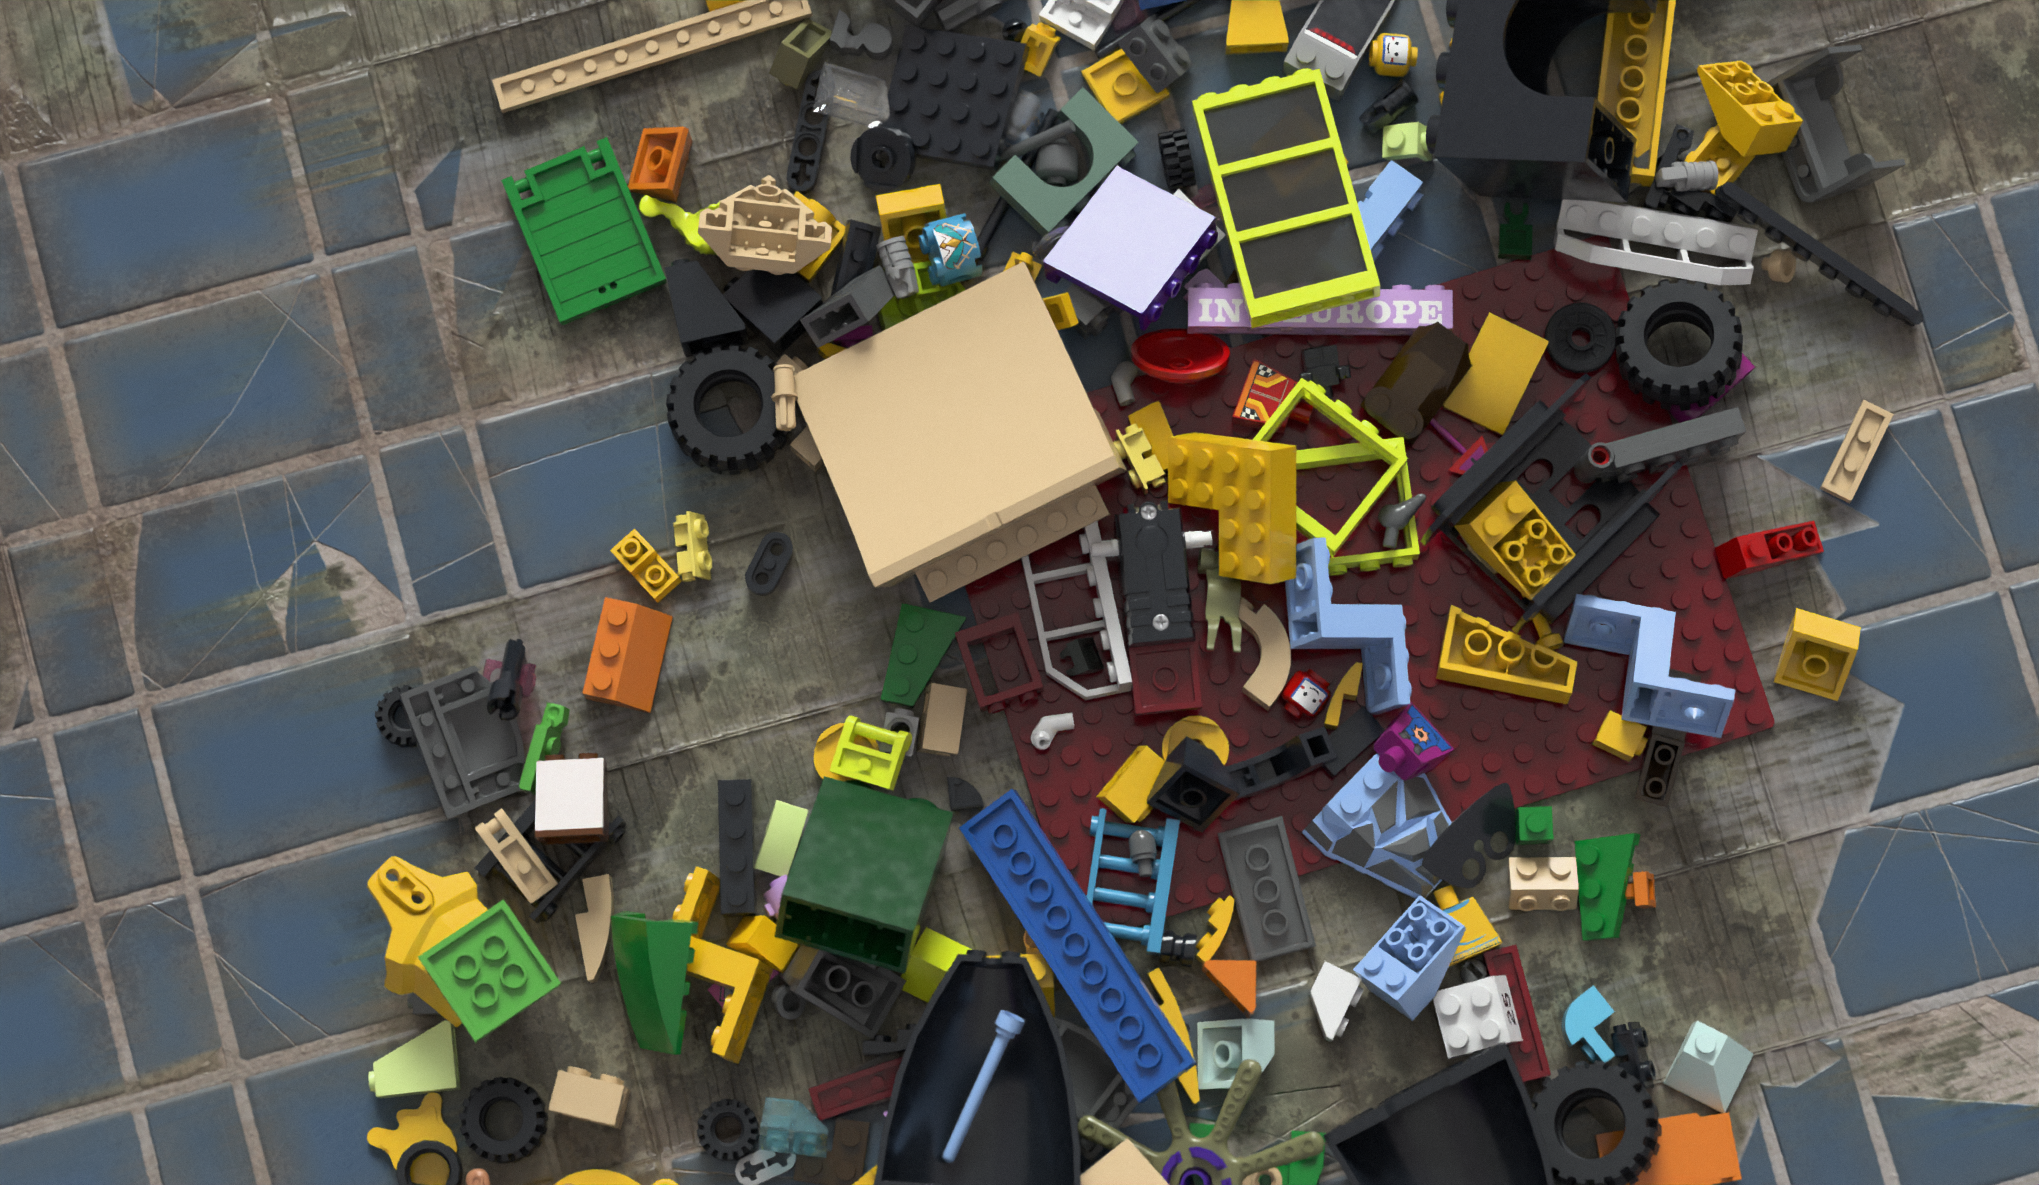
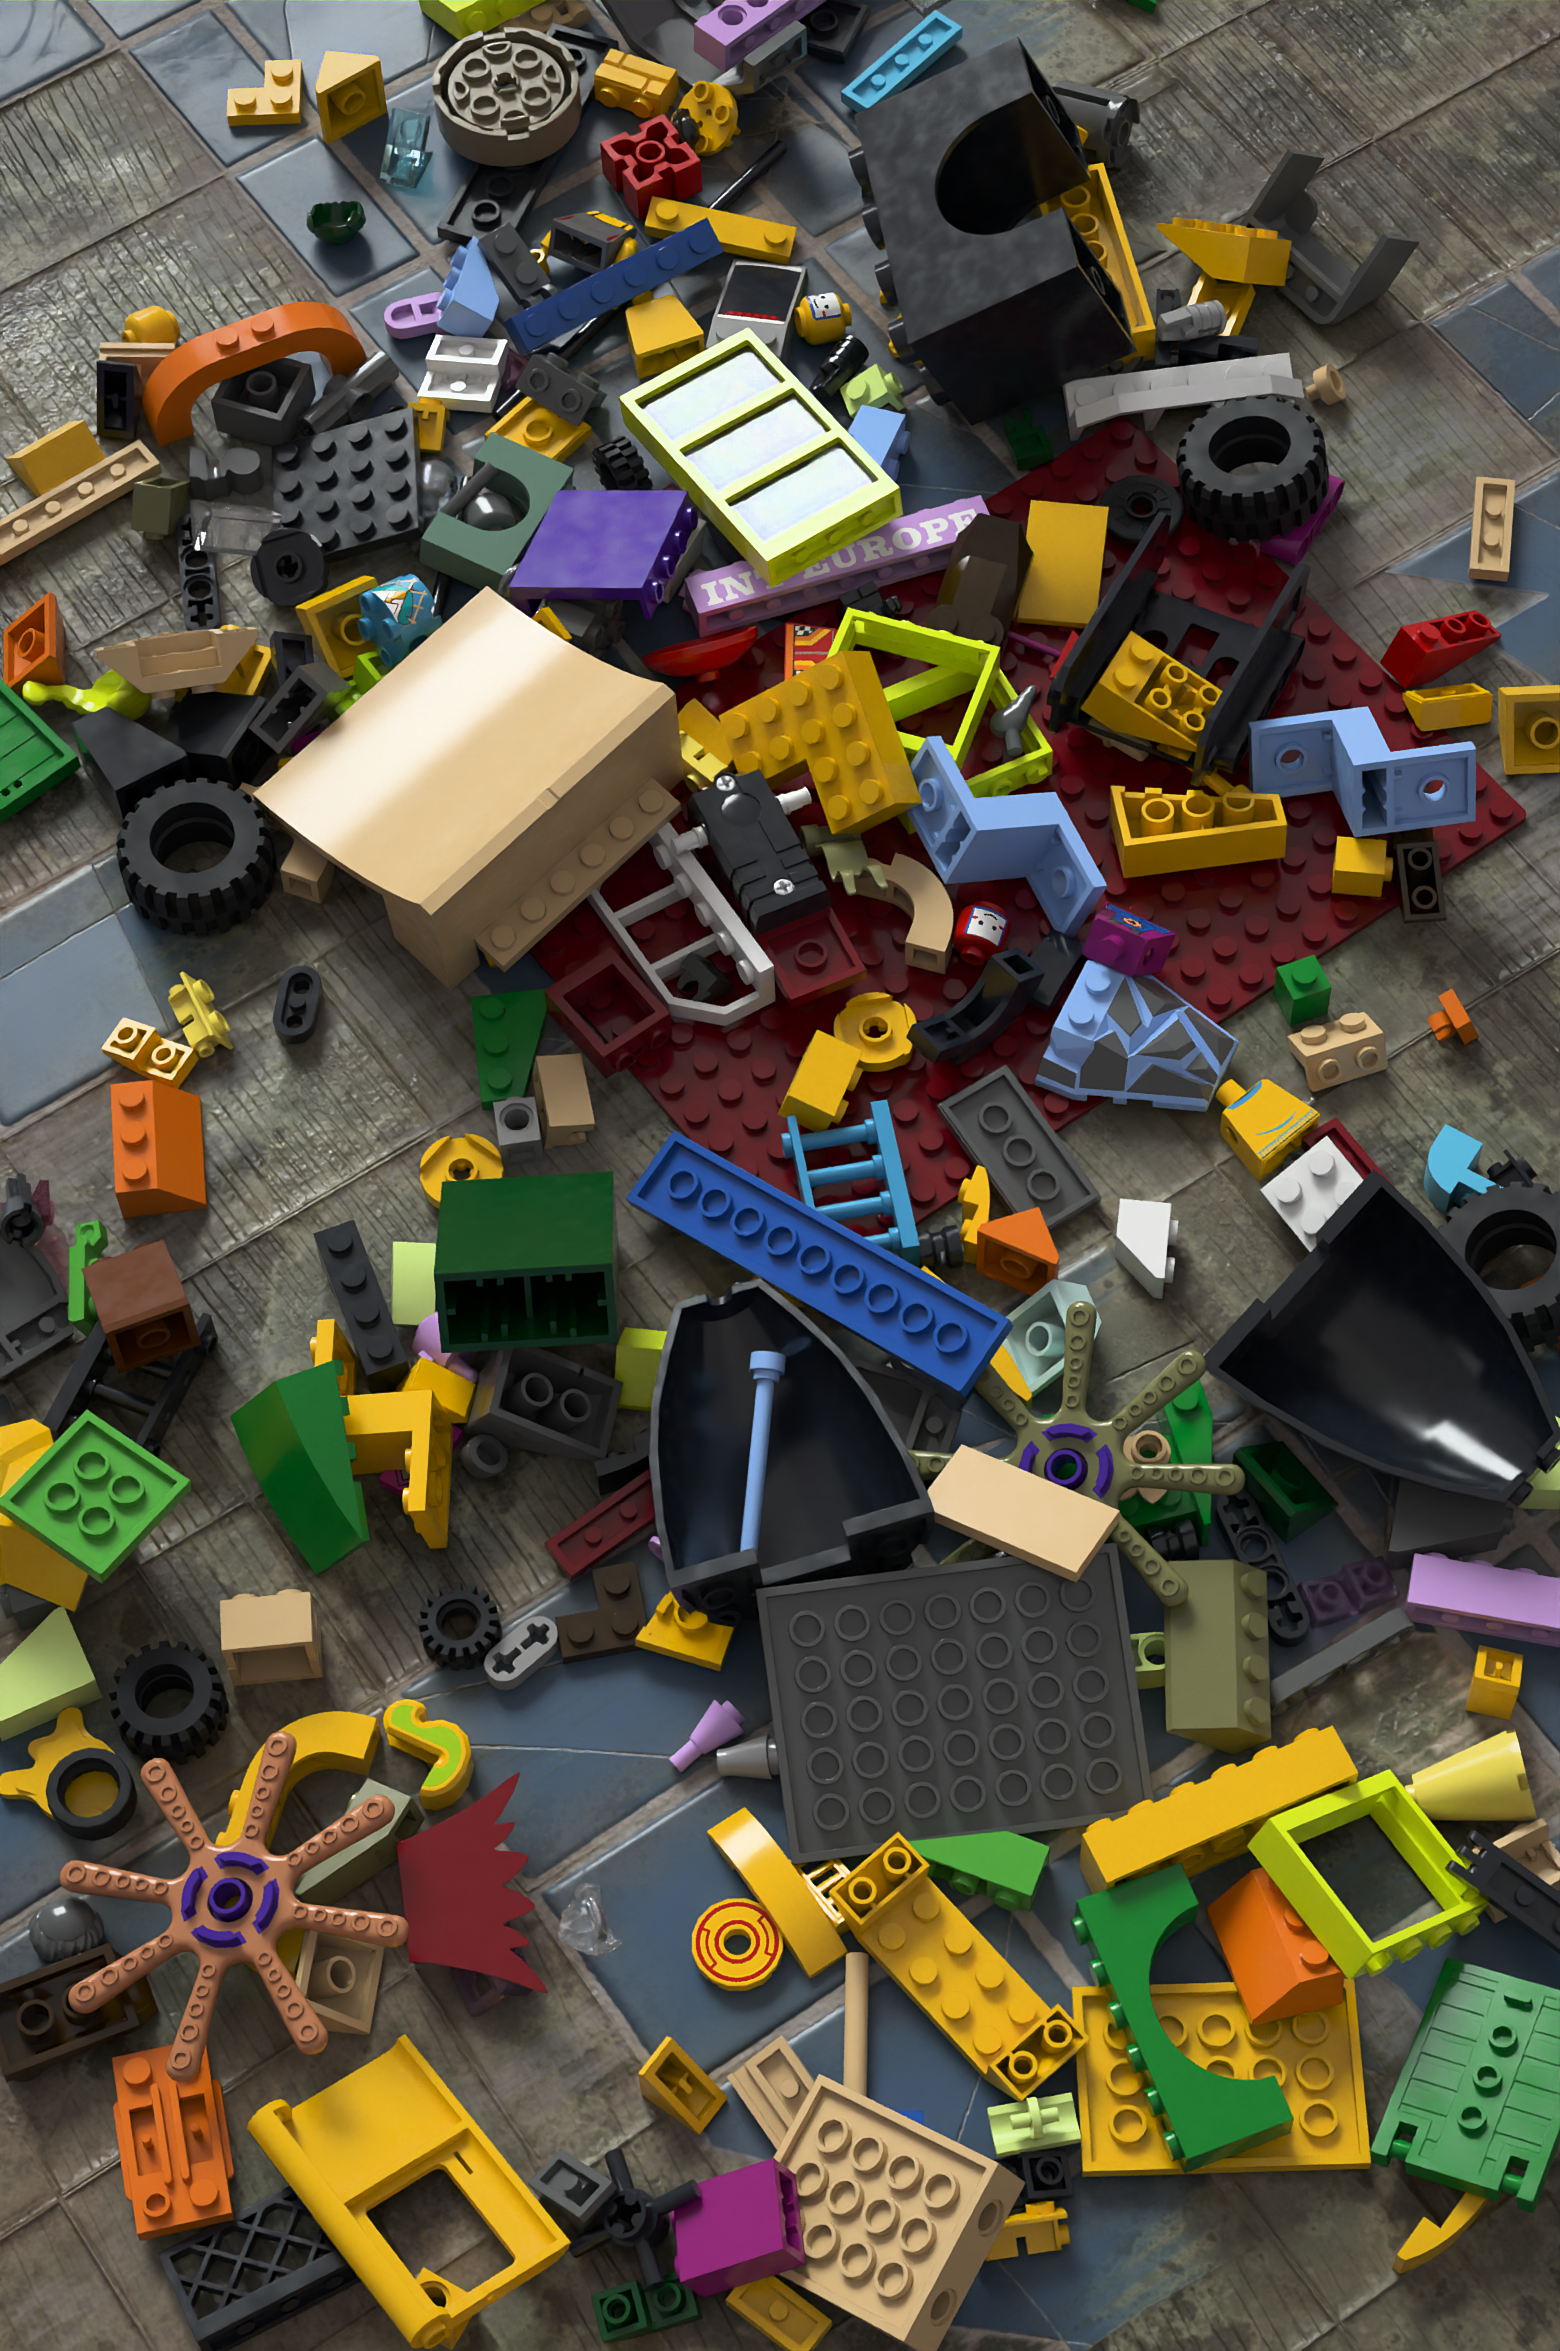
camera: 20 degrees left, 20 degrees down
(517, 857) = (89, 1389): tan plate -> none
(595, 925) = (214, 1447): tan slope -> none
(784, 397) = (256, 804): tan axle -> none
(792, 1129) = (542, 1592): clear light blue slope -> none
(866, 763) = (490, 1157): neon yellow plate -> none
(898, 266) = (344, 656): light grey hinge -> none
(963, 795) = (624, 1172): black tile -> none
(1048, 727) = (693, 1063): white arm -> none
(1143, 851) = (856, 1145): dark grey cylinder -> none
(1193, 785) = (889, 1054): black slope -> none
(1346, 690) = (1026, 916): yellow slope -> none
(1412, 958) = (1221, 1162): light blue slope -> none
(1480, 821) = (1237, 1000): black piece -> none
(1602, 882) = (1406, 1012): green wing -> none
(1661, 447) = (1251, 580): dark grey hinge -> none
(1752, 606) = (1449, 706): none -> yellow slope
(1807, 248) = (1363, 353): black hinge -> none

